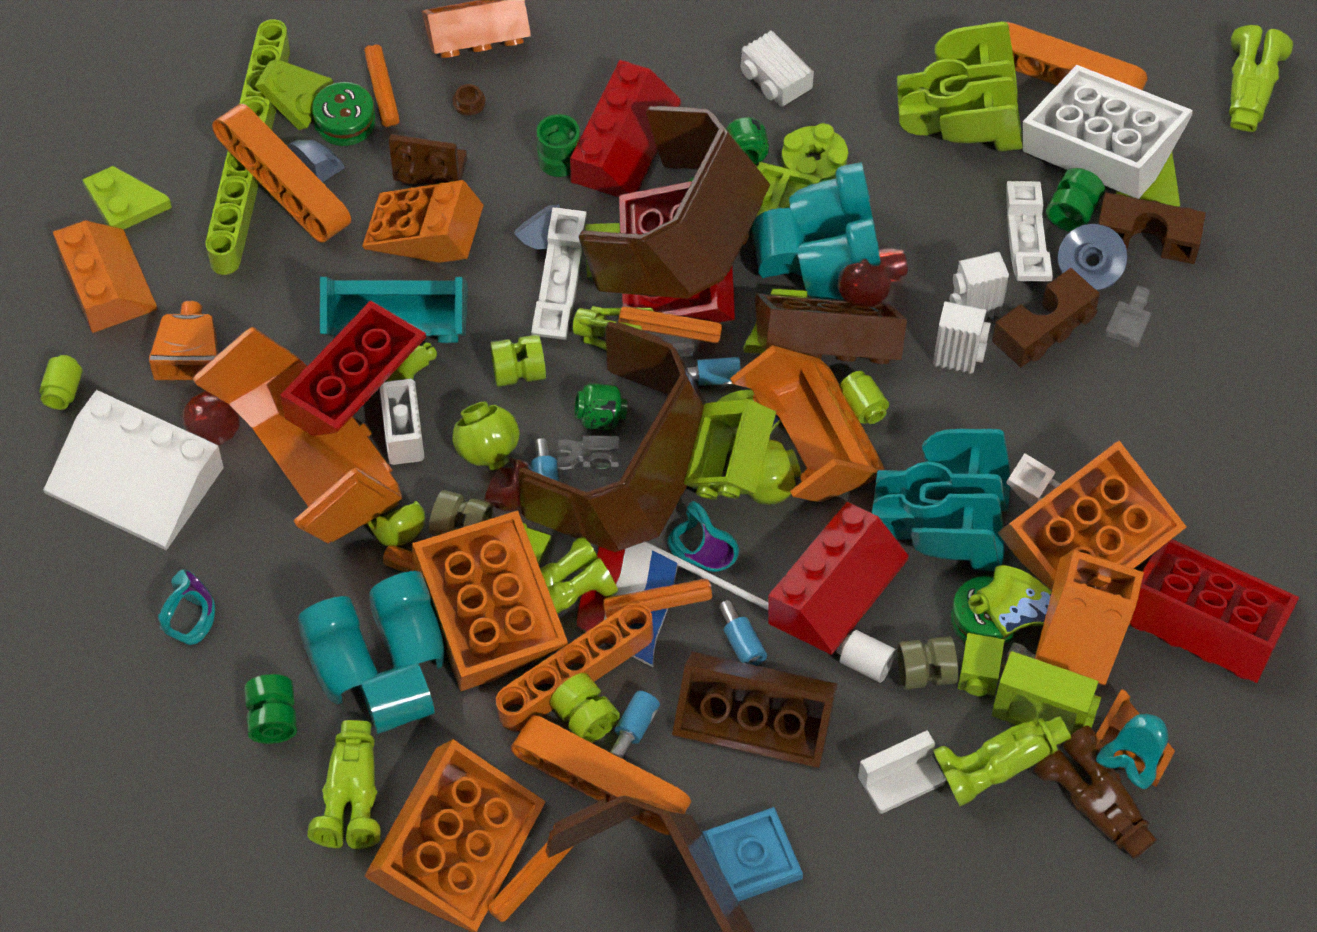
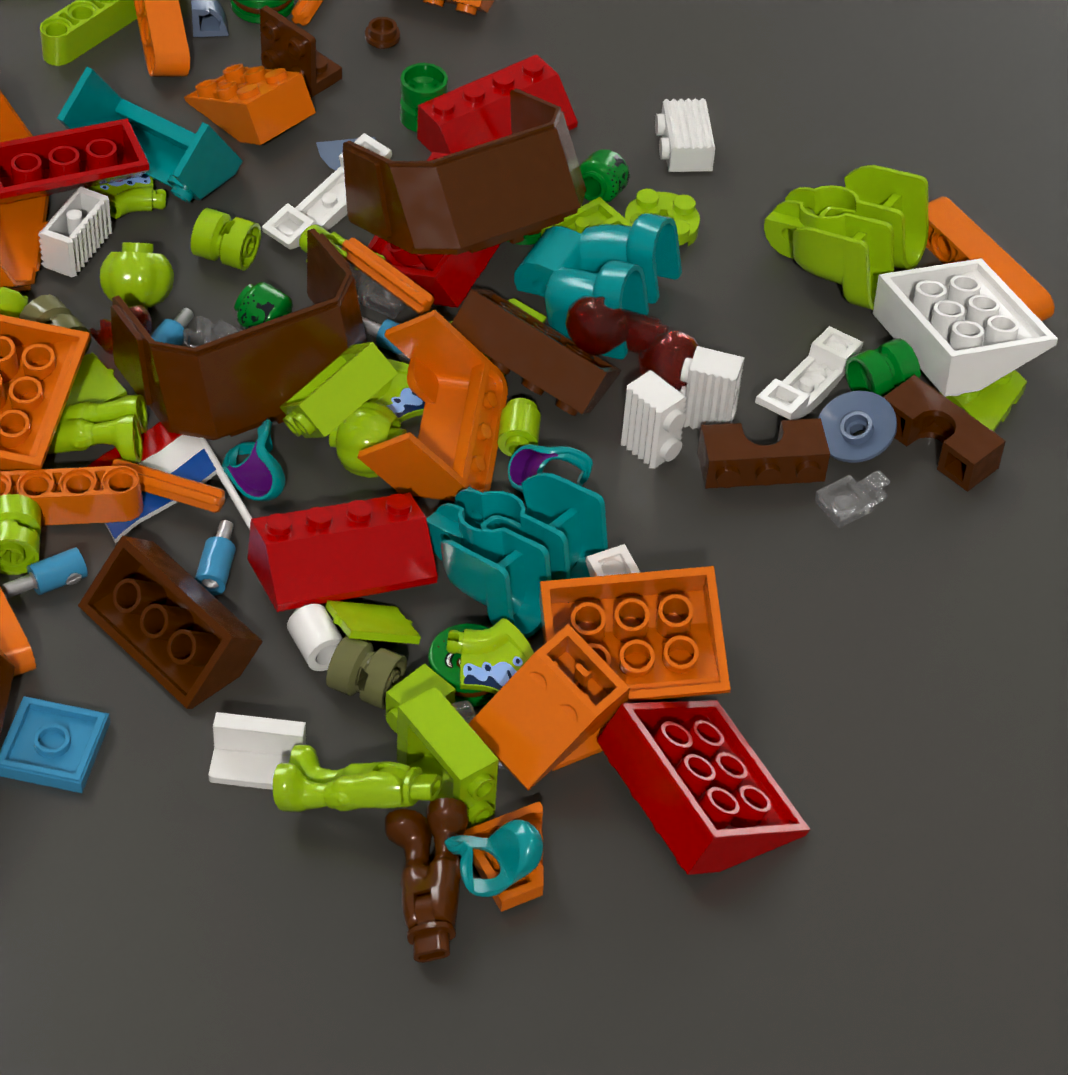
camera: 30 degrees right, 10 degrees down
(900, 423) = (533, 458): none -> piece
(900, 621) = (372, 622): none -> lime piece
(930, 279) = (667, 356): none -> clear red hair

